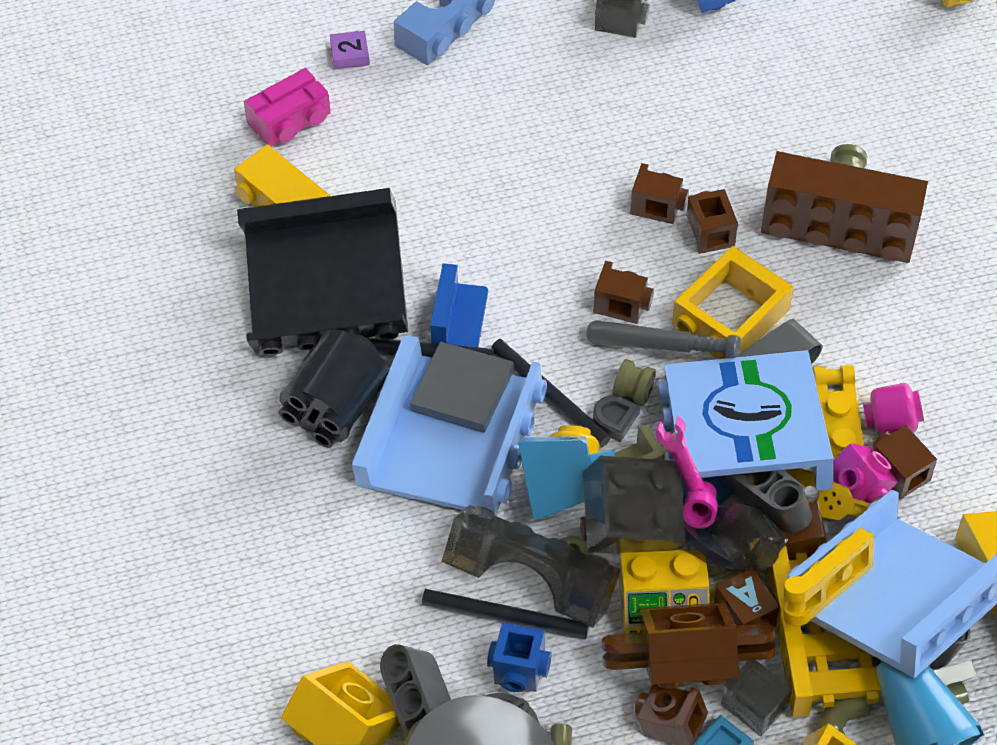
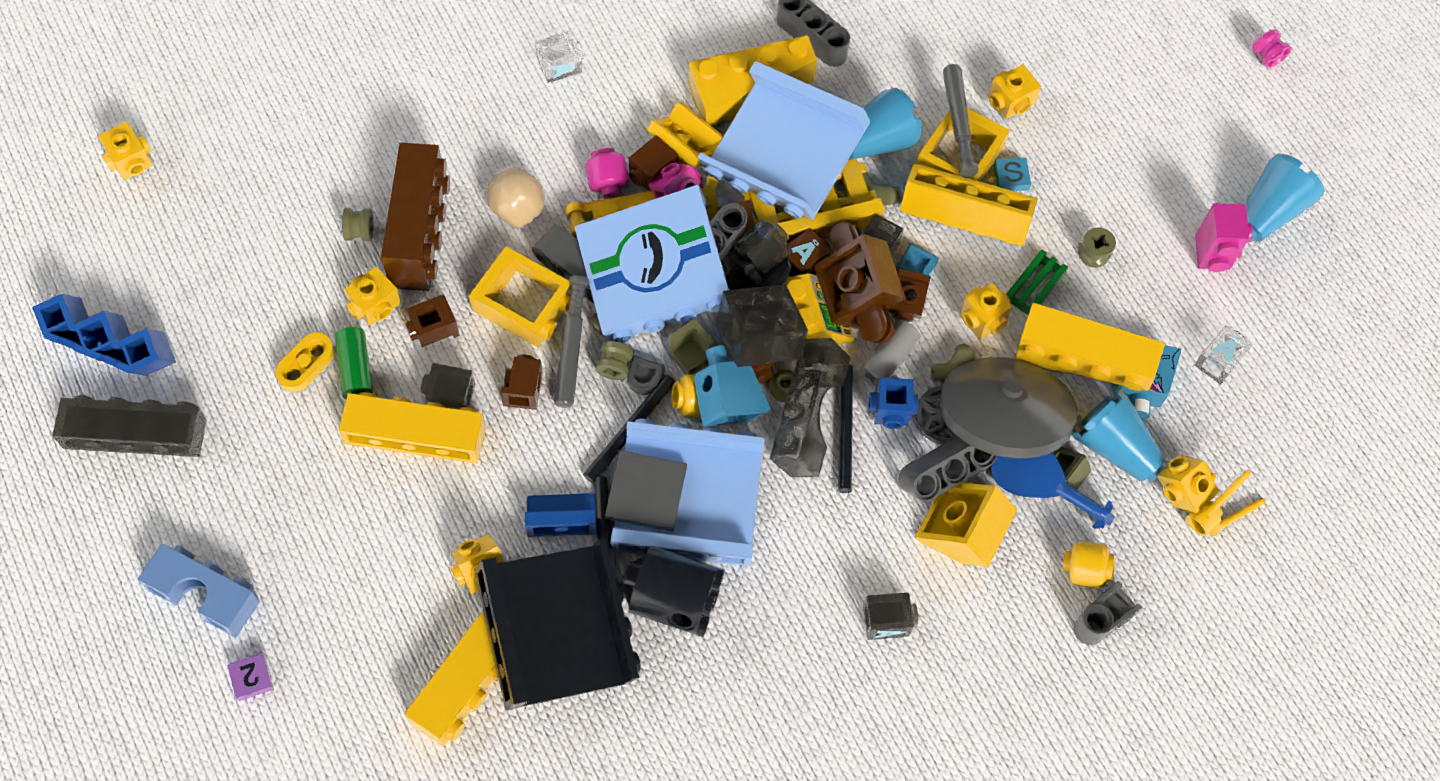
camera: 105 degrees left, 10 degrees up
(252, 602) = (889, 616): none -> clear smoke brick
(287, 107) = (342, 714): dark pink brick -> none
(417, 226) = (469, 556): none -> yellow brick
(584, 192) = (412, 427): none -> yellow brick
(589, 676) = (890, 355): none -> light grey piece
(626, 227) = (448, 386): none -> clear smoke brick
(657, 195) = (408, 368): reddish brown brick -> none
(673, 149) = (353, 361): none -> green piece
(687, 113) = (302, 362): none -> yellow plate
(701, 503) = (749, 277): dark pink brick -> none
(747, 166) = (371, 296): none -> yellow brick
(828, 578) = (794, 185): yellow plate -> none
(868, 314) = (515, 197): none -> tan hair
(939, 498) = (686, 134): none -> yellow bracket

